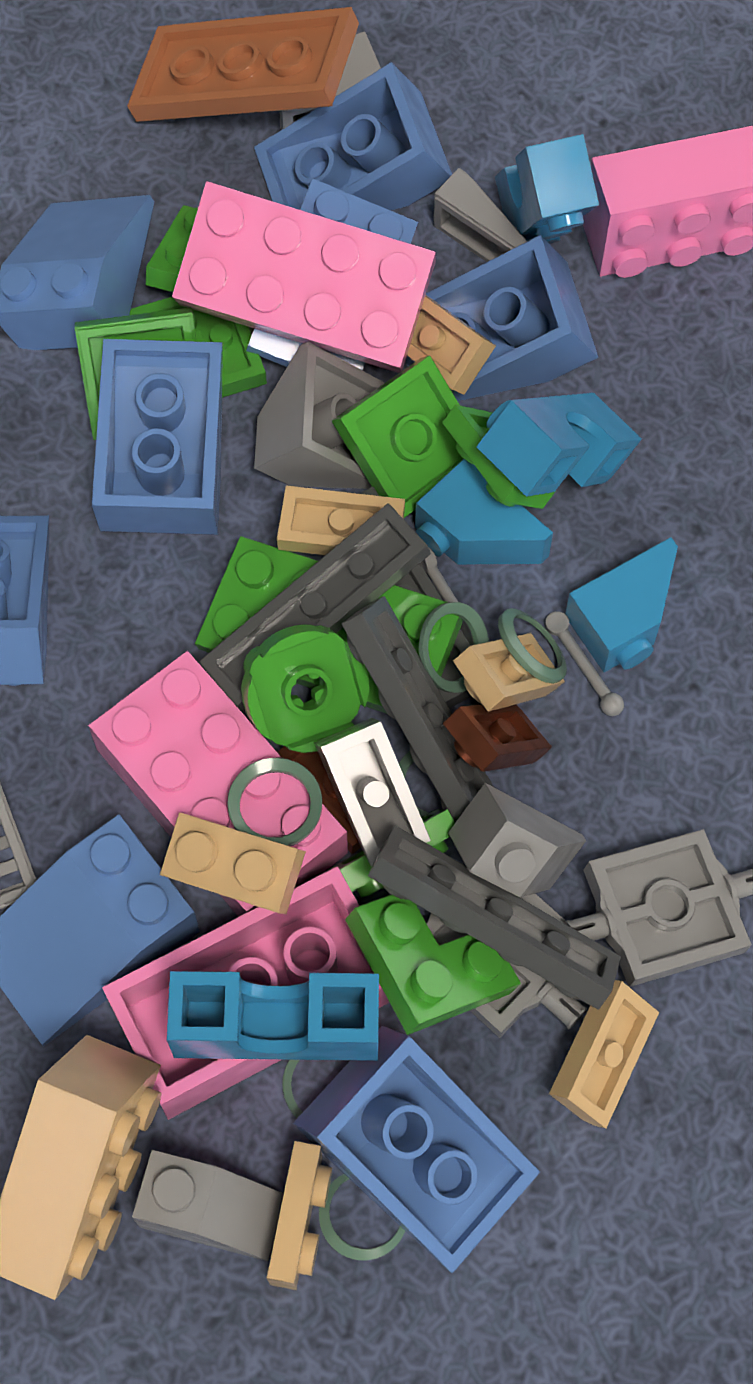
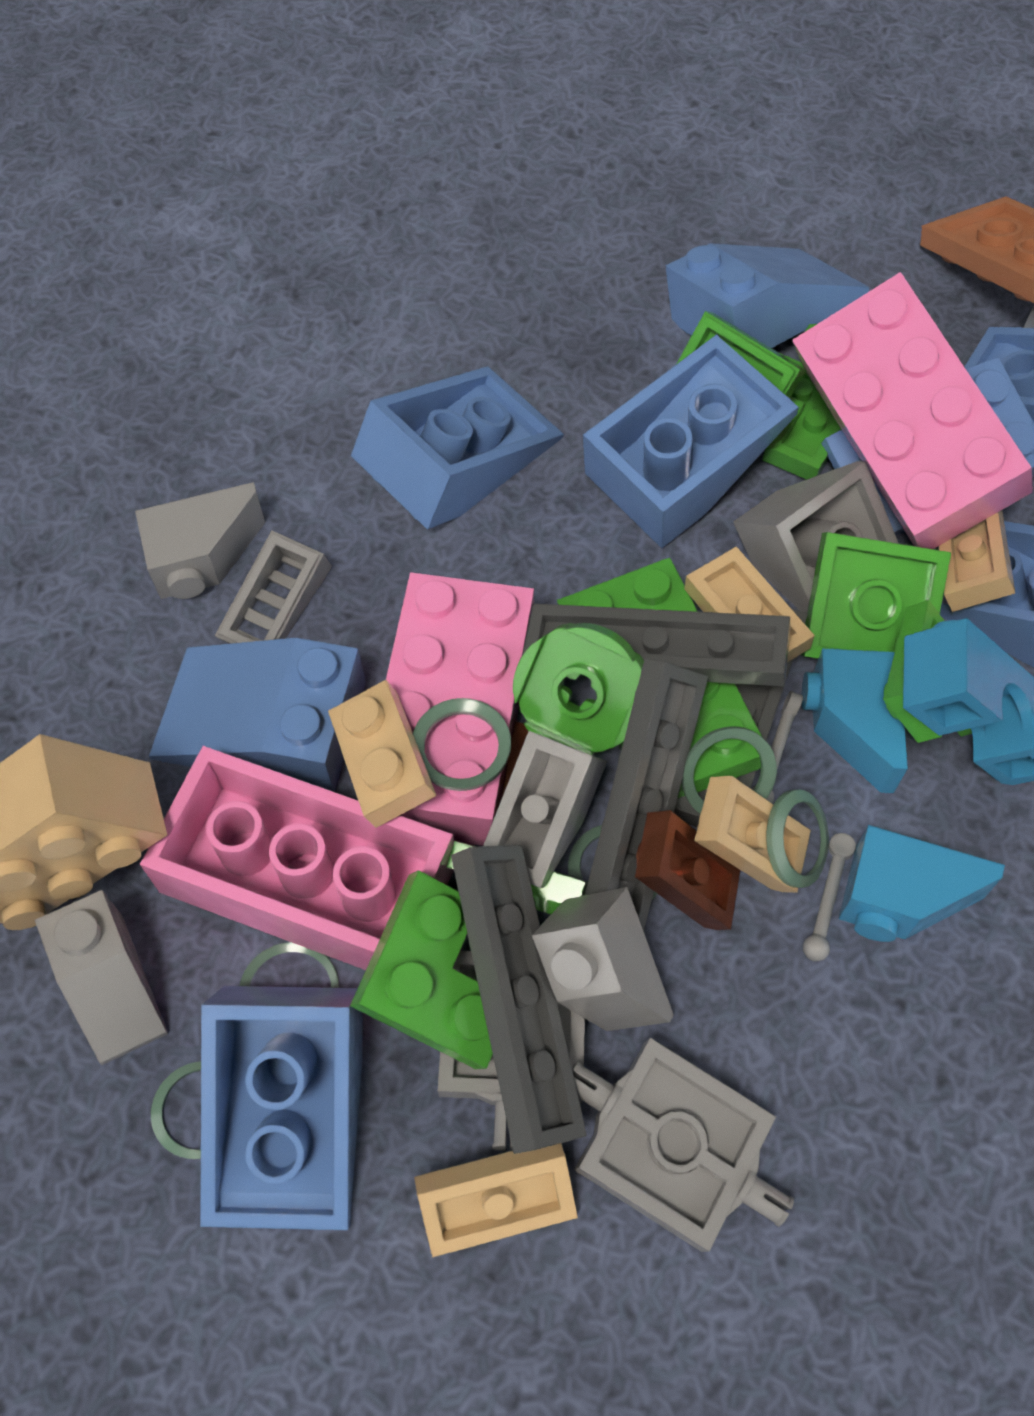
camera: 50 degrees right, 5 degrees down
(234, 1019) = (263, 882): dark azure arch -> none
(305, 1187) = (118, 1069): tan plate -> none

